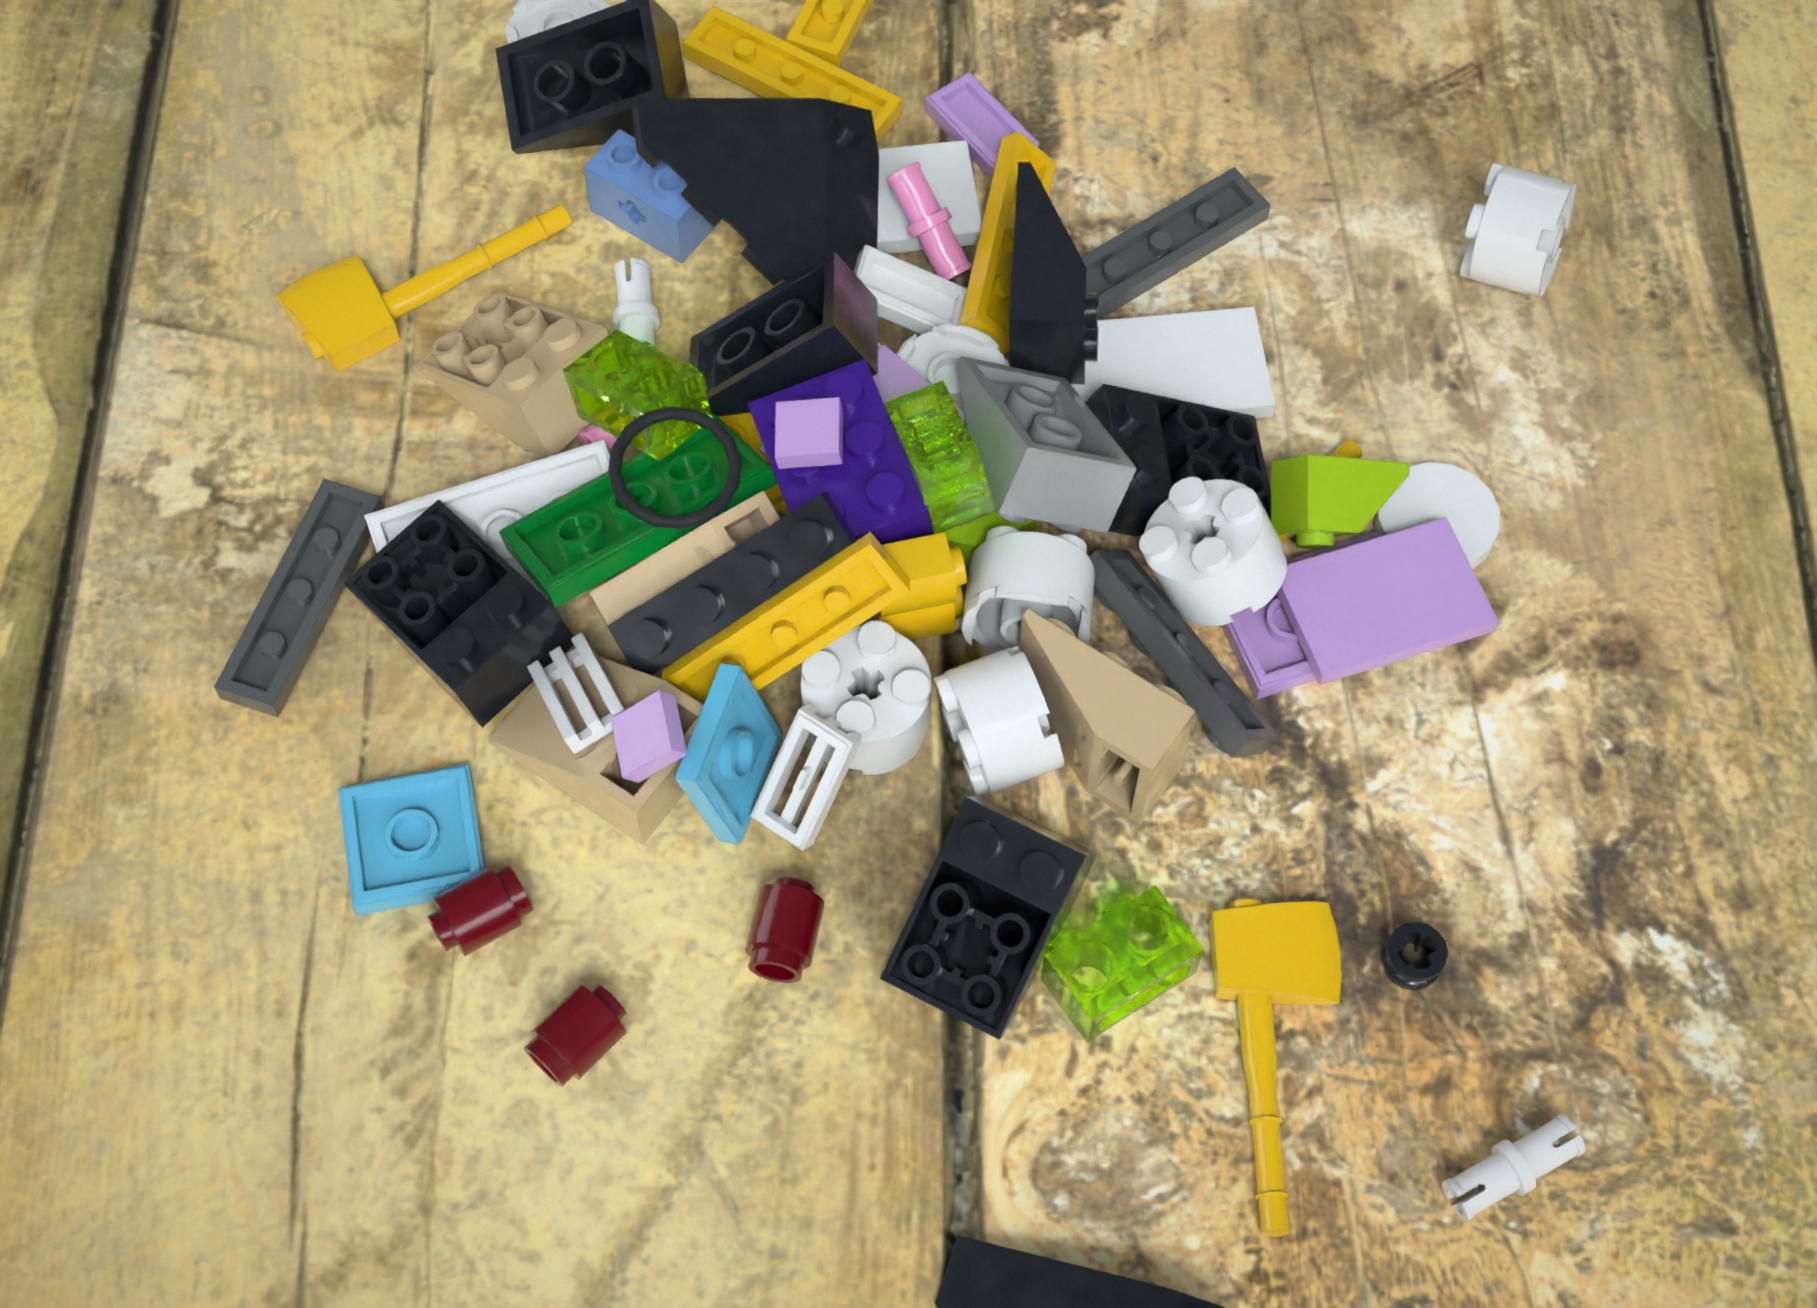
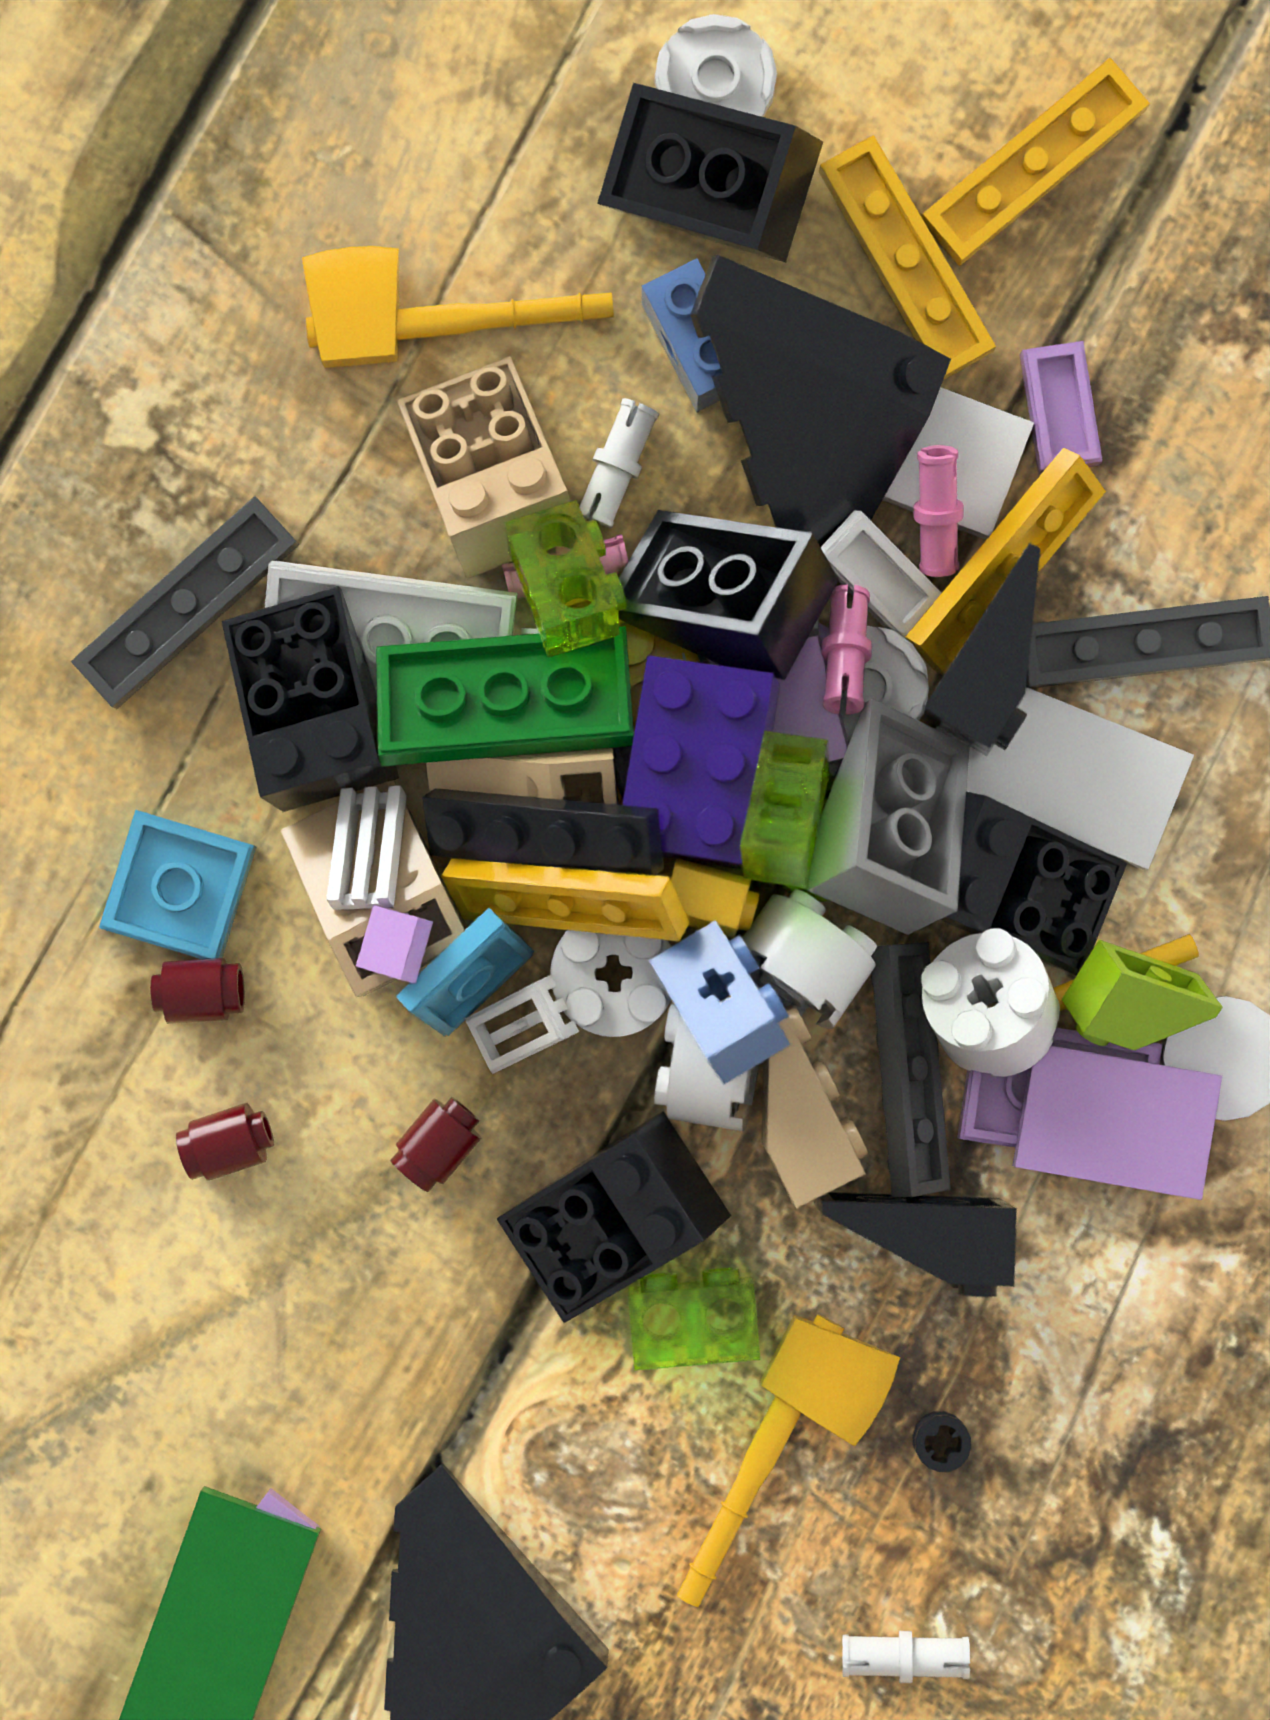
camera: 35 degrees right, 25 degrees up
(665, 520) = (591, 660): black piece -> none
(809, 433) = (676, 734): lavender tile -> none
(916, 341) = (846, 649): none -> bright pink pin
(977, 627) = (732, 1032): none -> brick
(1282, 761) = (951, 1237): none -> black slope

